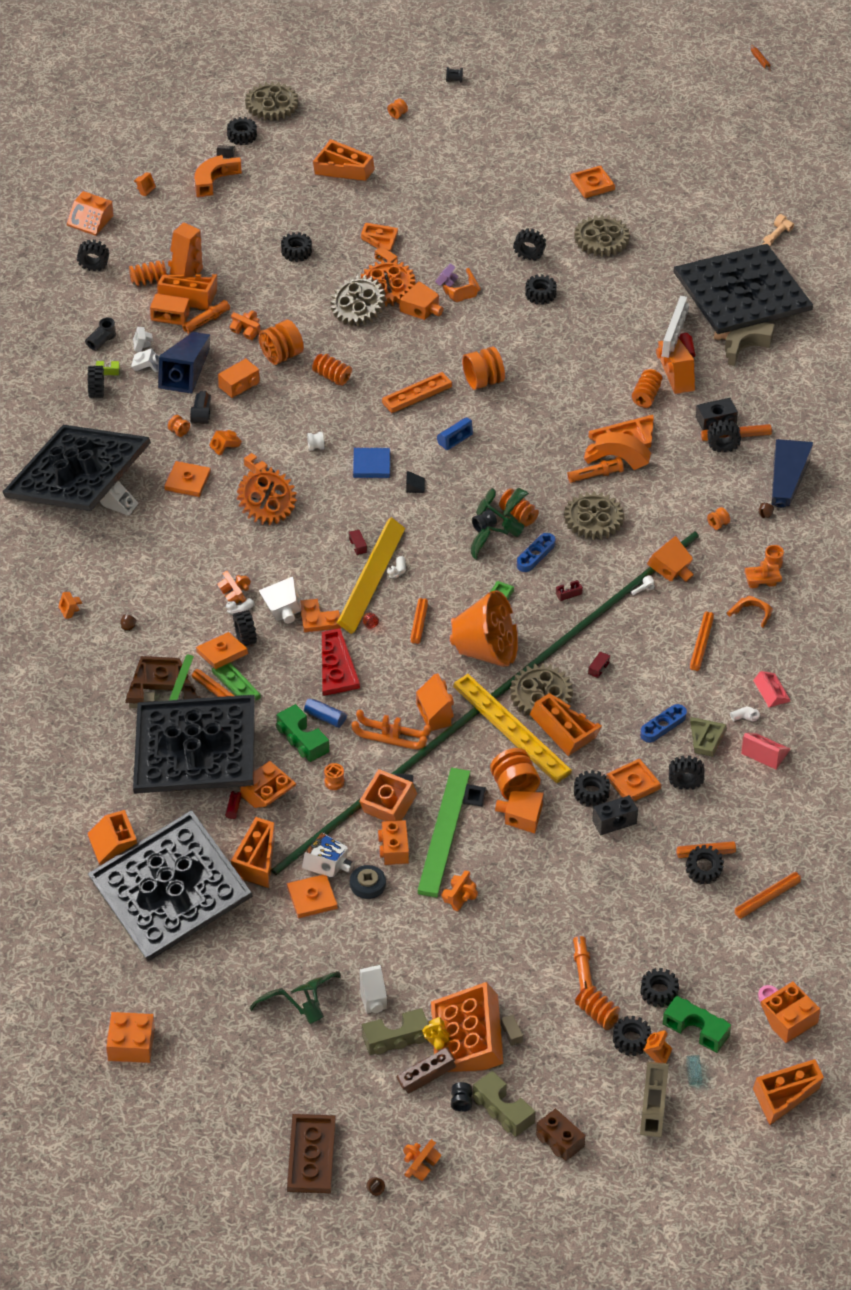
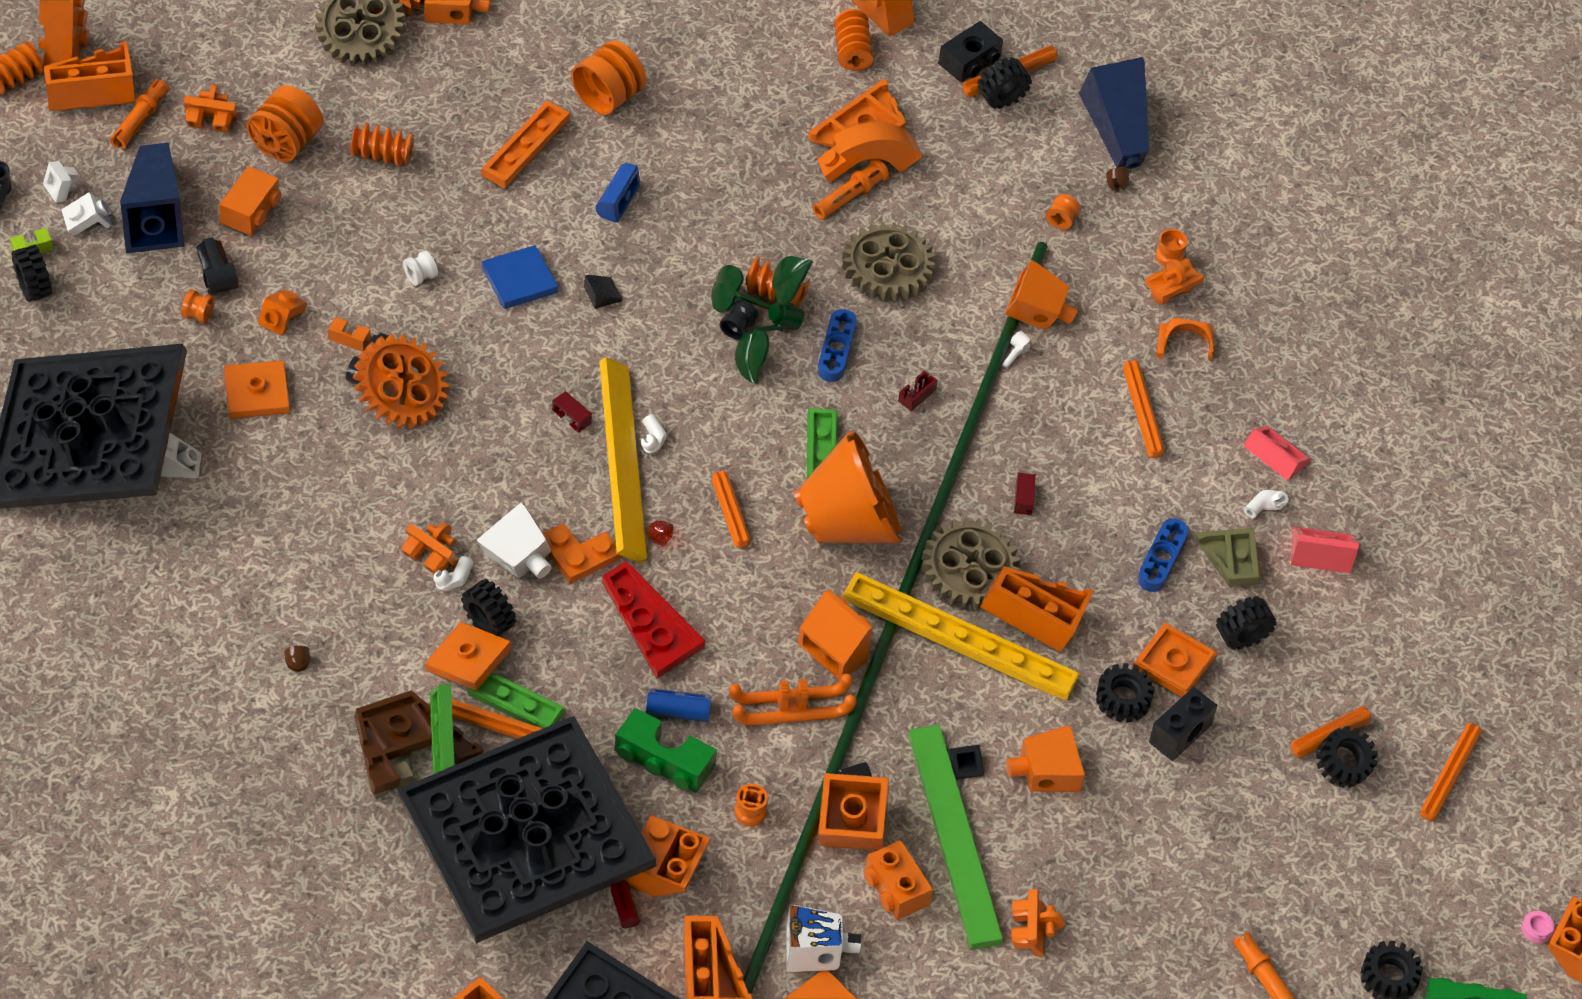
camera: 30 degrees left, 5 degrees up
(68, 604) = (190, 659): orange tile -> none
(169, 309) = (80, 115): orange brick -> none
(367, 882) = (894, 969): black wheel -> none
(514, 772) = (1014, 709): orange wheel -> none

